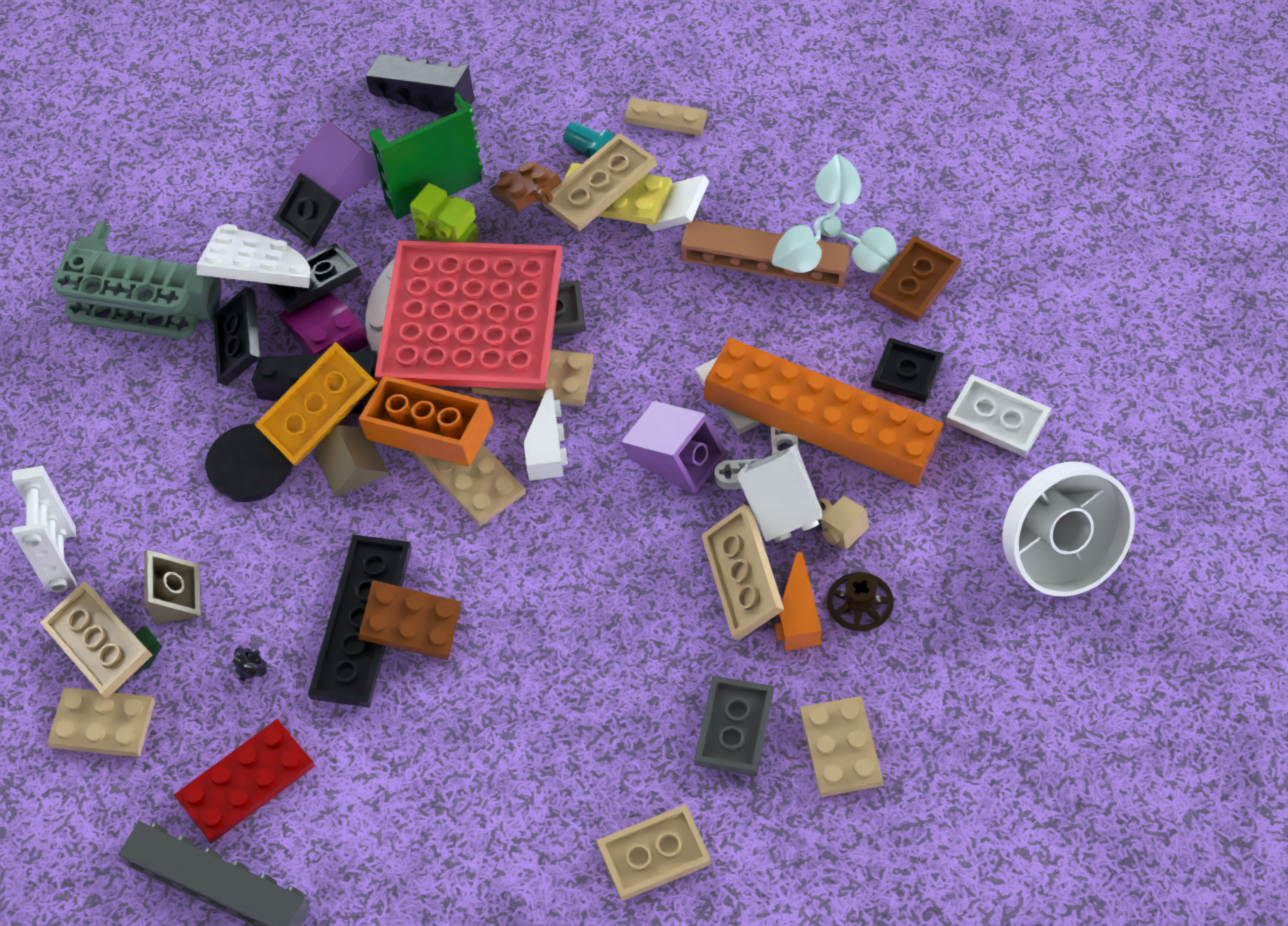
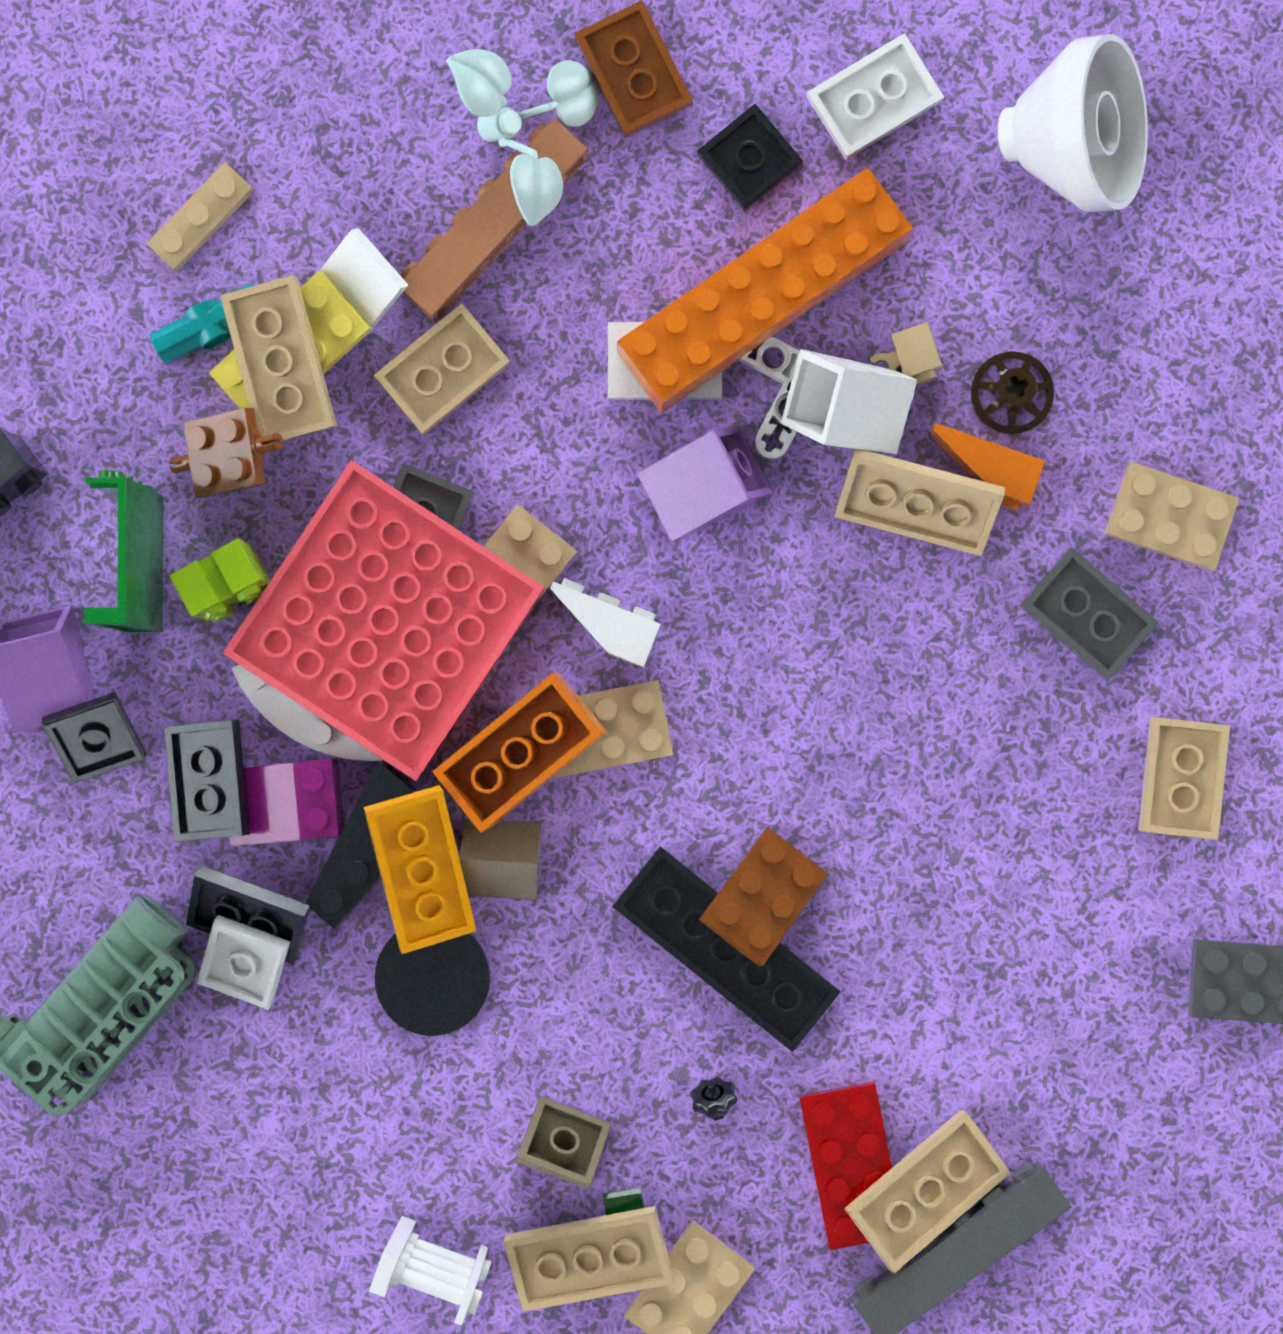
camera: 60 degrees left, 30 degrees up
(204, 351) = (243, 962): none -> white tile
(249, 829) = (927, 1191): none -> tan plate
(252, 258) = (145, 844): white plate -> none
(653, 274) = (442, 369): none -> tan plate

